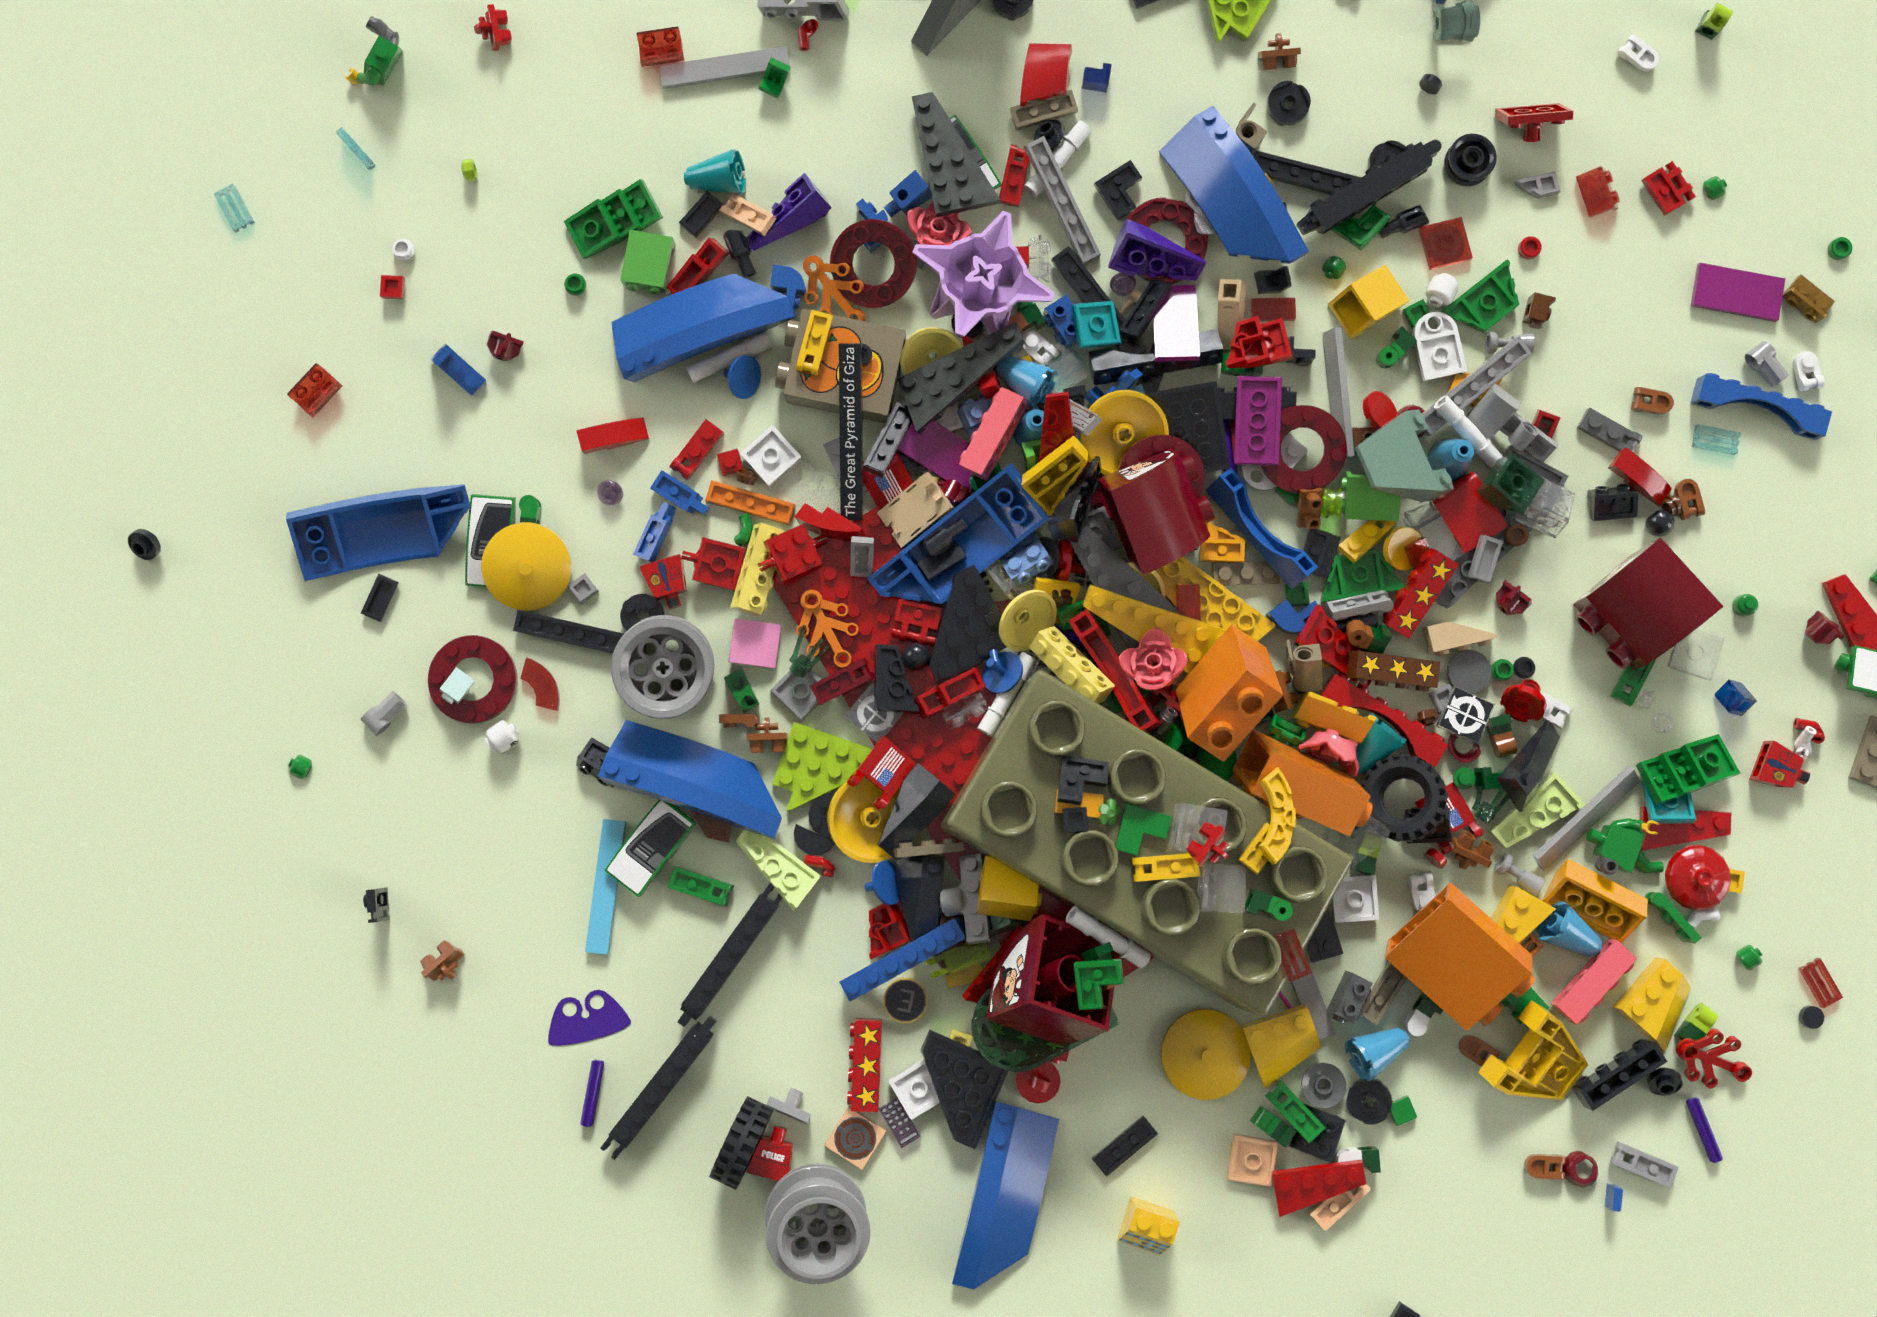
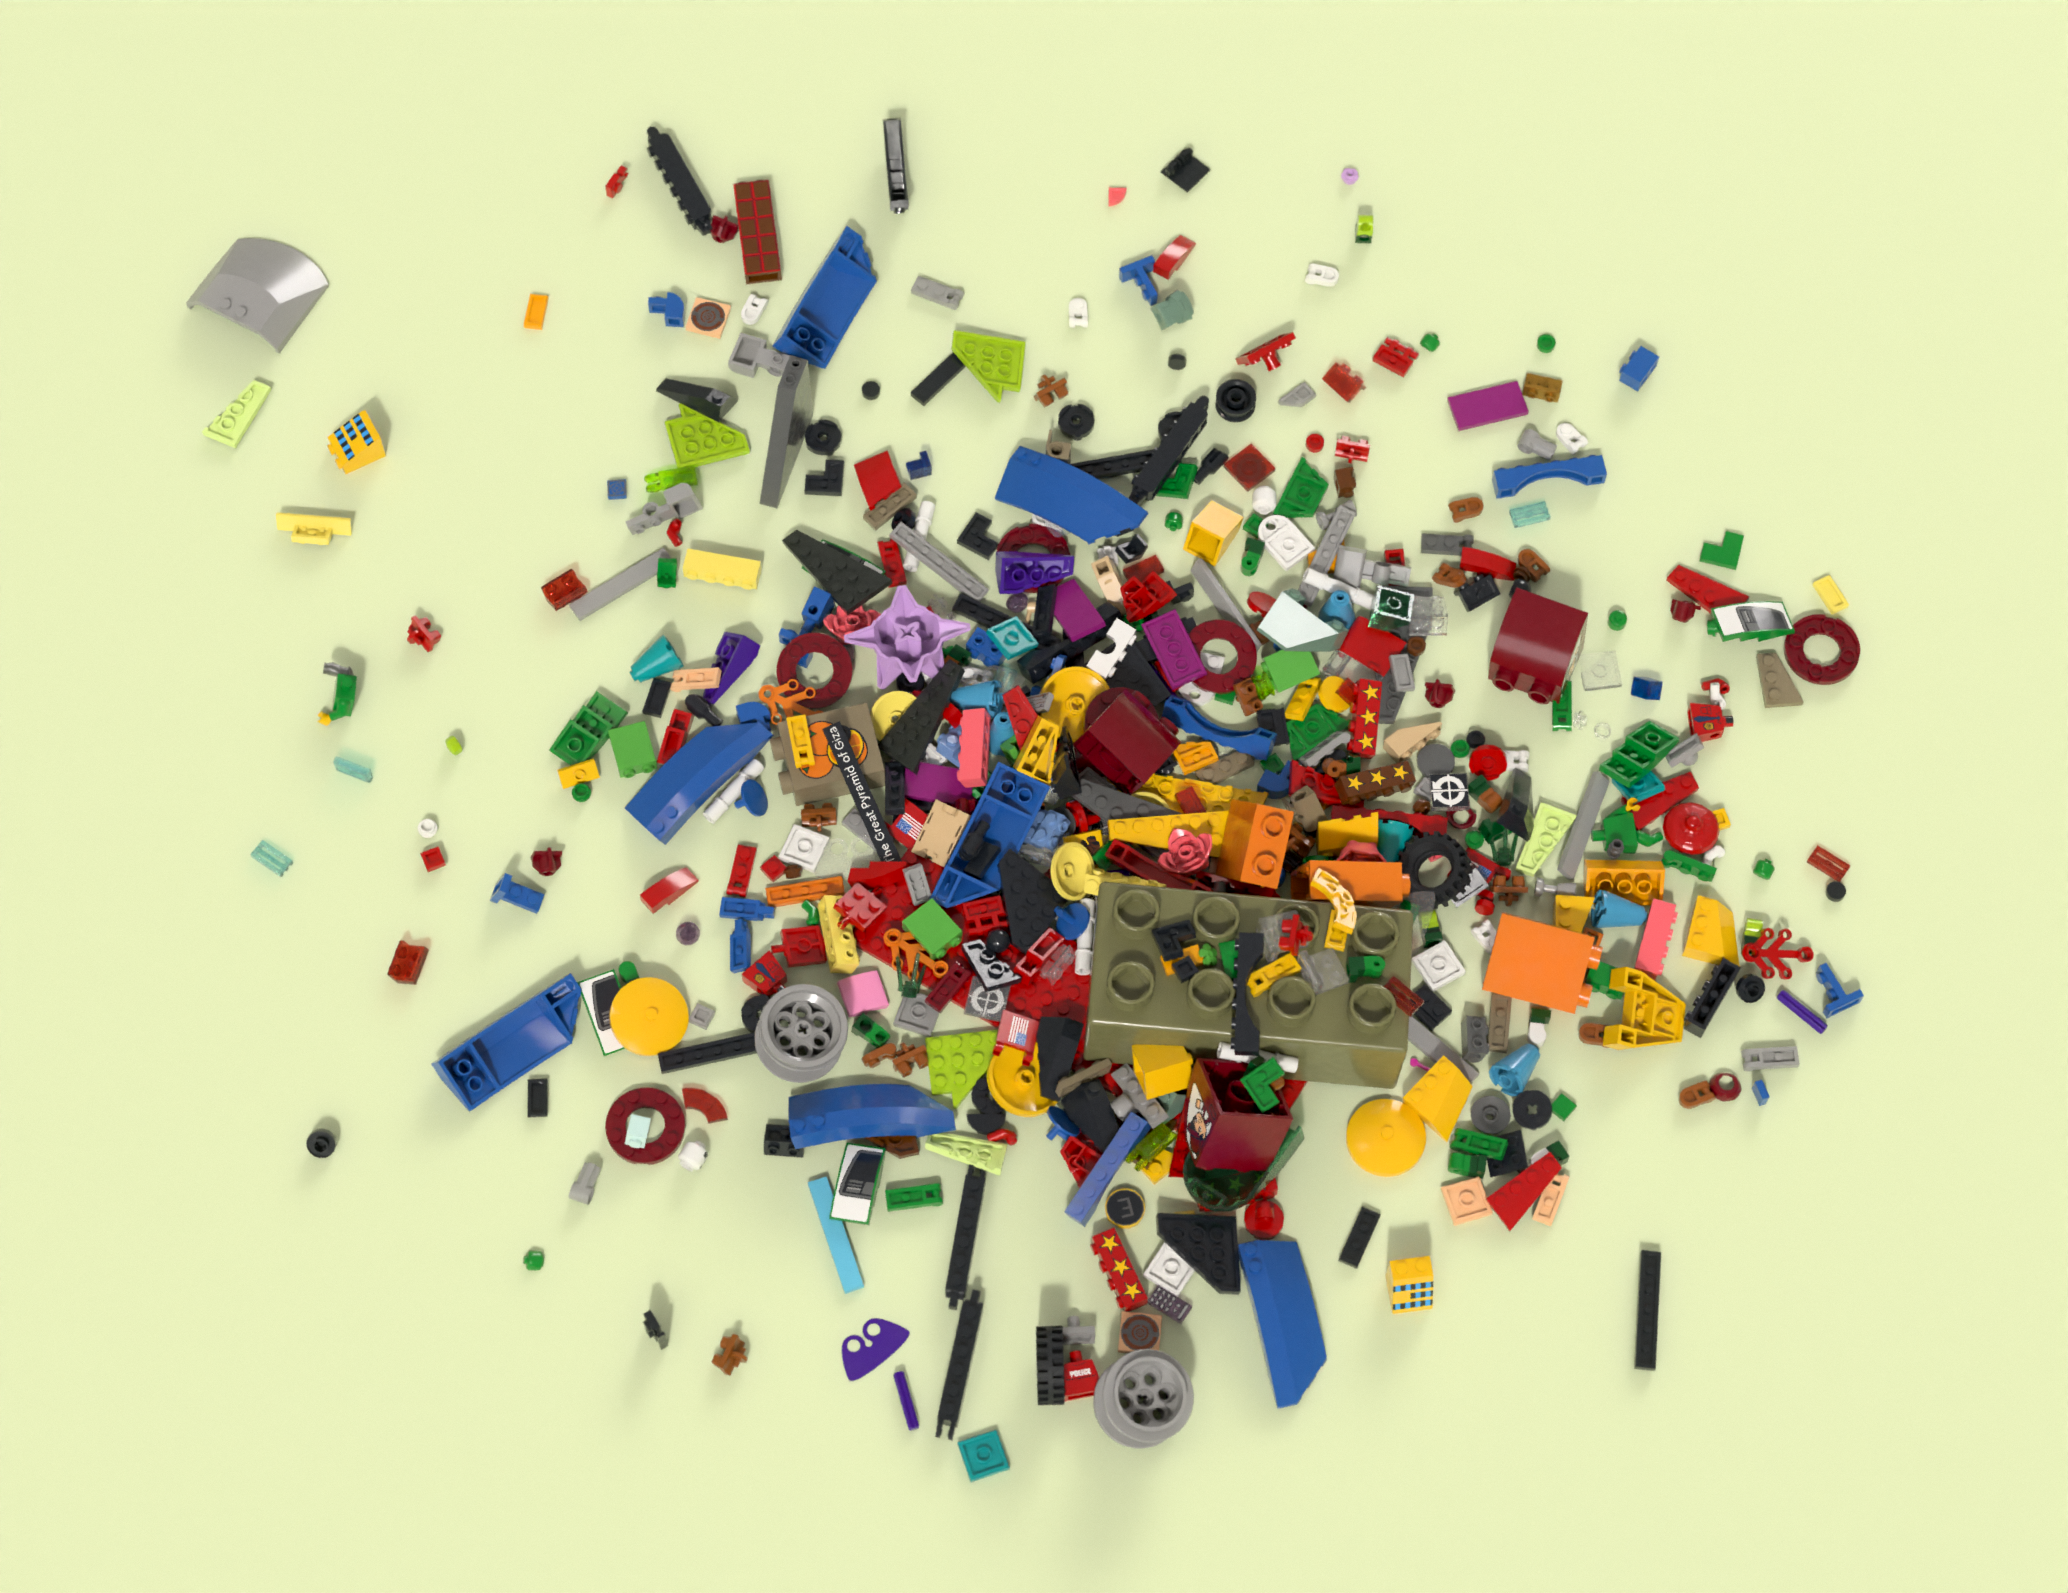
camera: 25 degrees left, 20 degrees down
(580, 262) = (578, 773): none -> yellow plate
(640, 1186) = (983, 1455): none -> teal tile
(800, 429) = (818, 817): none -> dark orange hips
(833, 100) = (722, 569): none -> light yellow brick
(854, 613) = (933, 929): none -> bright green panel
(993, 53) = (830, 483): none -> black plate
(1151, 839) = (1250, 952): none -> black arch
(1209, 384) = (1105, 664): none -> white arch
(1244, 273) = (1108, 551): none -> white tile
(1565, 276) = (1352, 450): none -> hips
(1598, 477) = (1454, 578): none -> dark orange plate
(1739, 790) = (1685, 752): none -> light grey tile
(1751, 1128) = (1835, 992): none -> blue bracket

